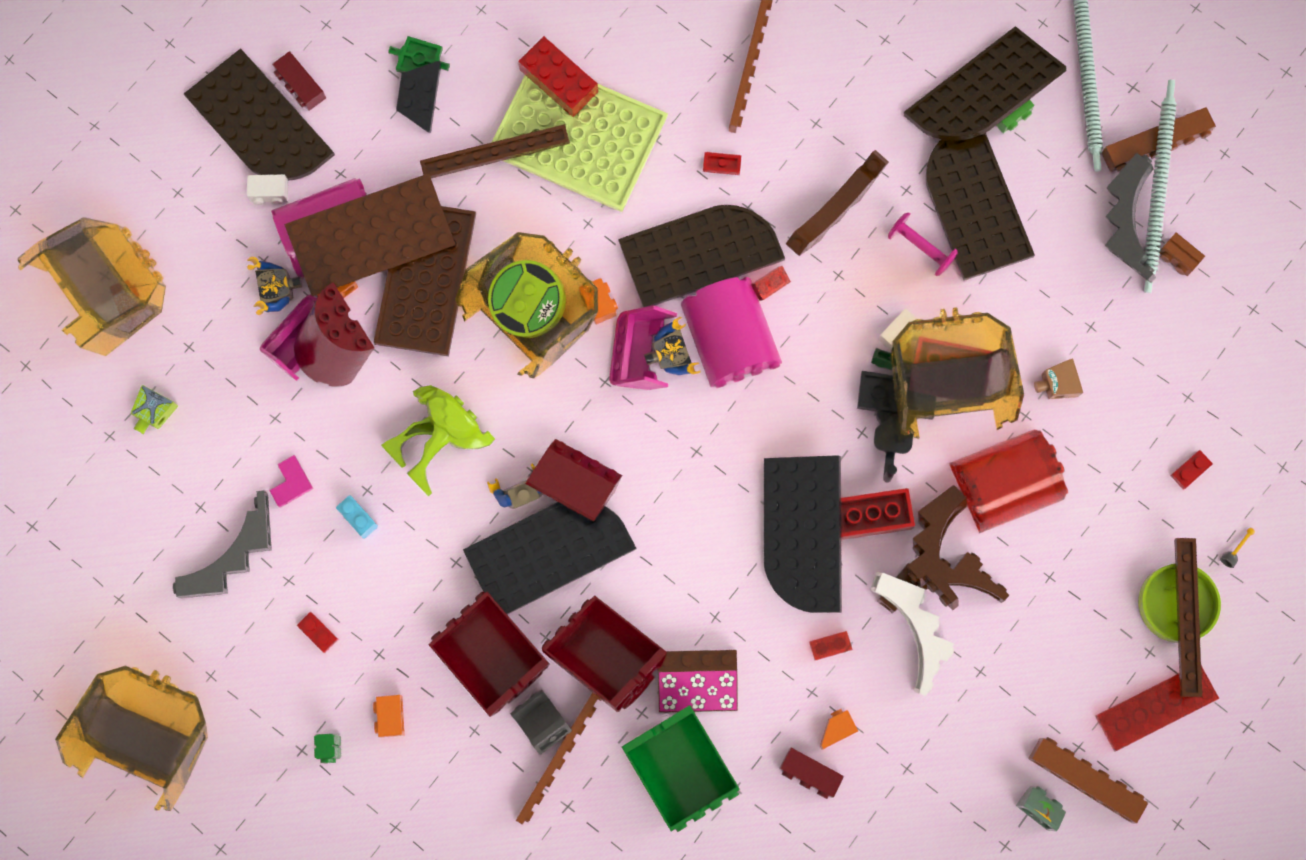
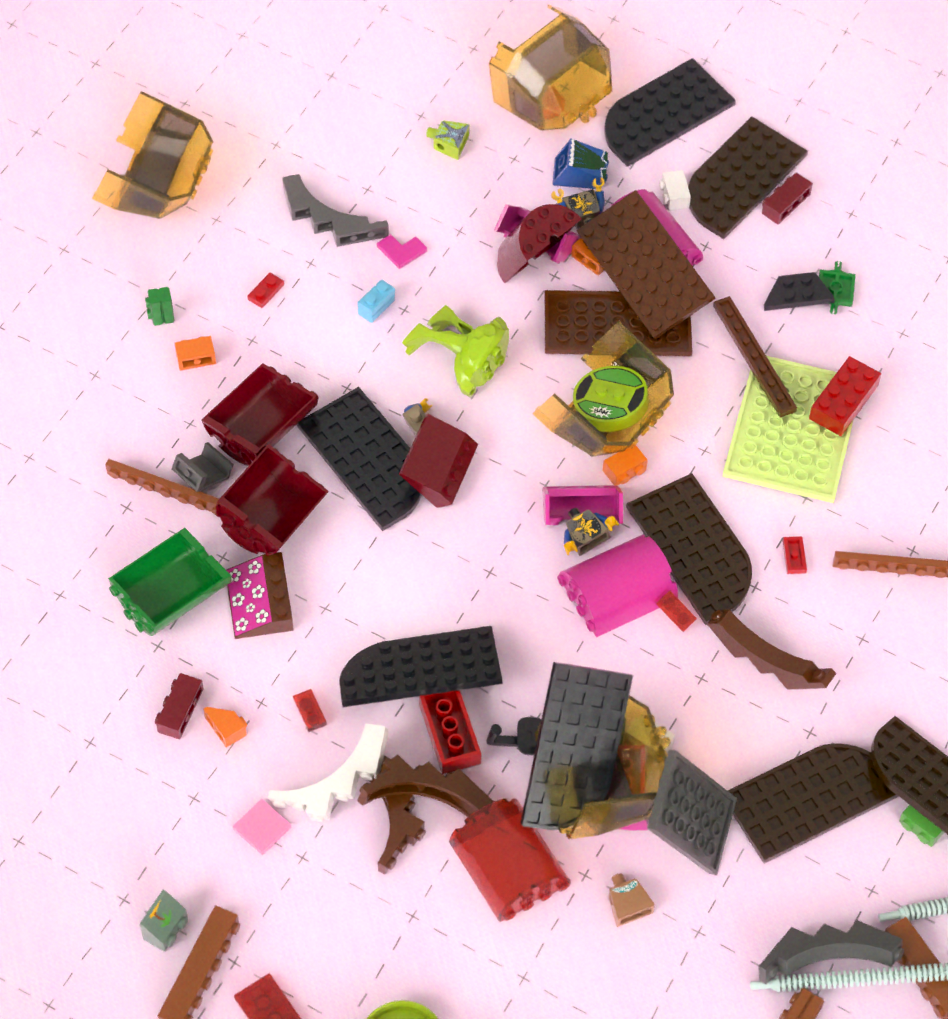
camera: 80 degrees right, 20 degrees down
(156, 181) = (663, 111): none -> black plate
(219, 279) = (579, 165): none -> blue slope
(922, 244) = (735, 768): dark pink hose -> none
(938, 395) = (575, 744): none -> black plate
(946, 706) = (262, 826): none -> bright pink tile
(1008, 306) = (692, 812): none -> dark grey plate

